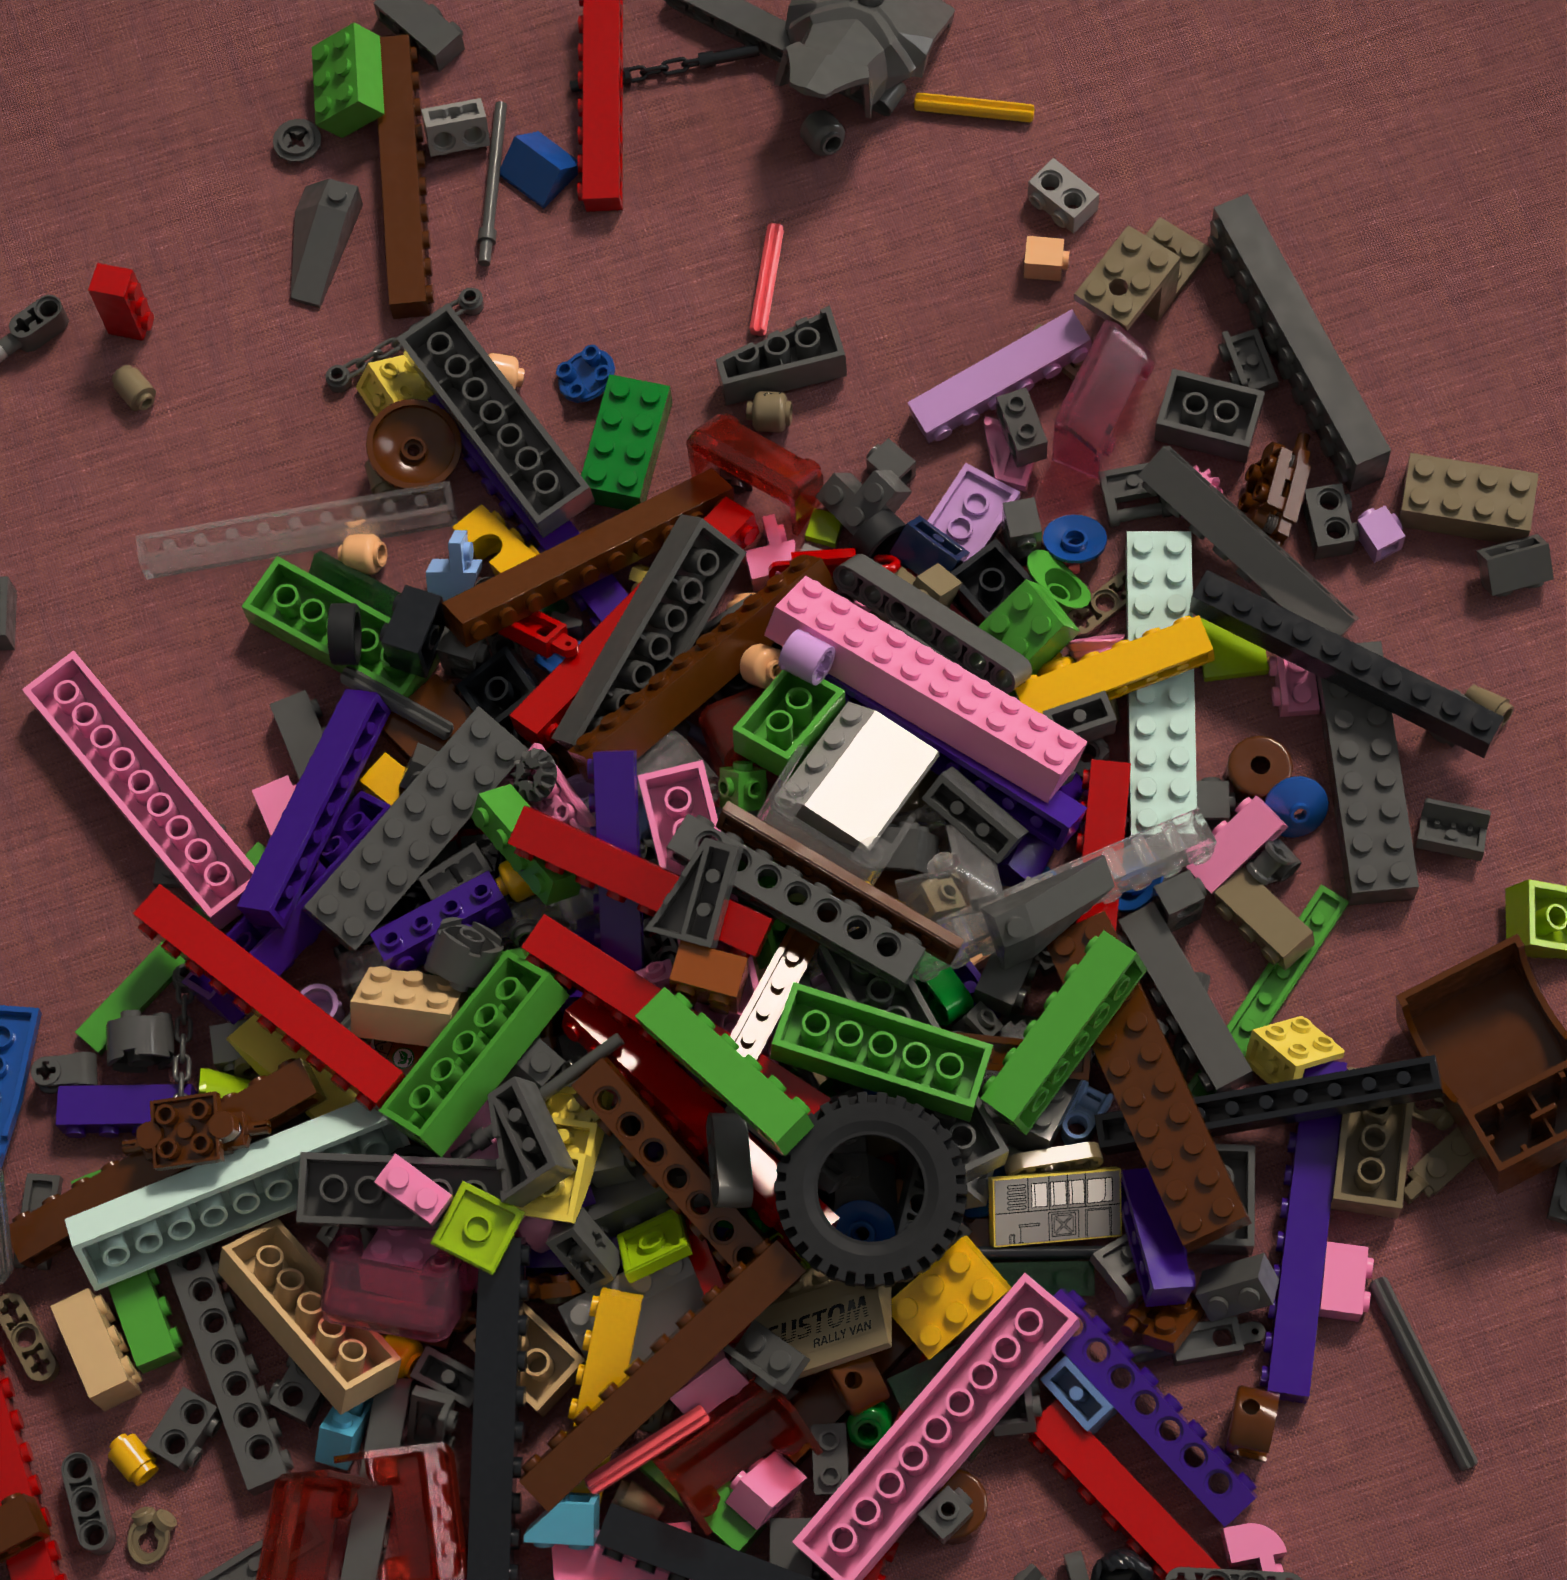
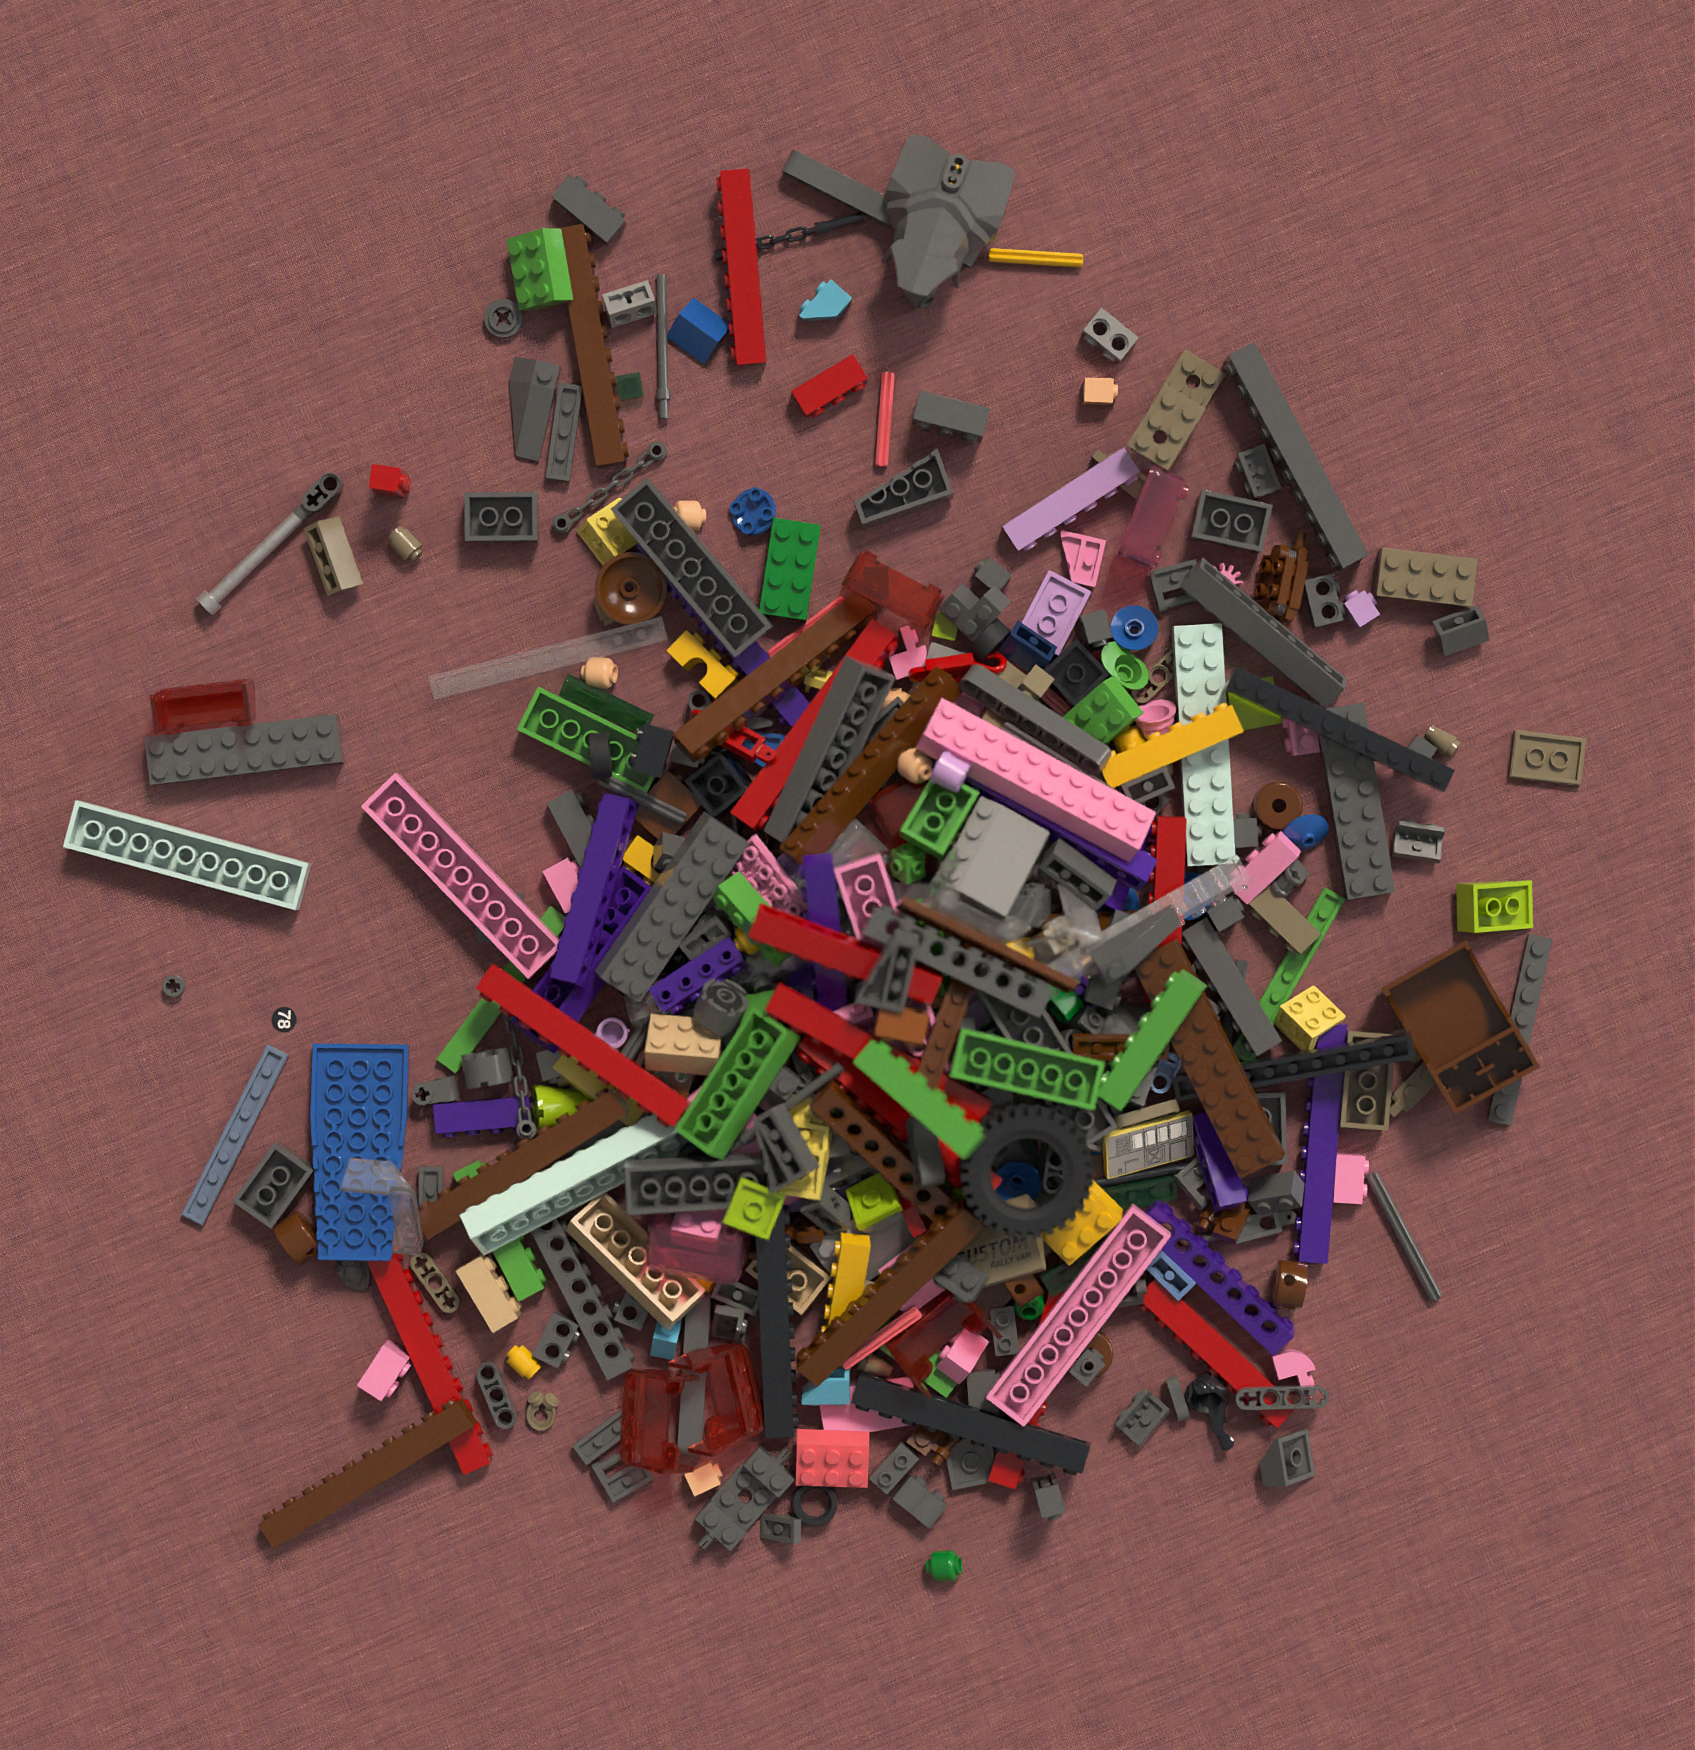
camera: 15 degrees left, 20 degrees up
(38, 394) = (333, 556): none -> dark tan brick
(192, 1132) = (543, 1152): reddish brown piece -> none
(260, 360) = (501, 517): none -> dark grey brick
(355, 272) = (564, 432): none -> dark grey plate
(414, 1190) = (708, 1190): bright pink brick -> none
(445, 223) = (630, 386): none -> clear green plate
(458, 572) = (672, 689): light blue brick -> none
(543, 778) = (763, 871): dark grey gear -> none
(699, 235) = (830, 387): none -> red brick
(704, 143) = (827, 304): none -> medium azure slope
(769, 412) = (897, 536): dark tan head -> none
(850, 271) = (950, 417): none -> dark grey brick
(1021, 427) = (1090, 543): dark grey brick -> none

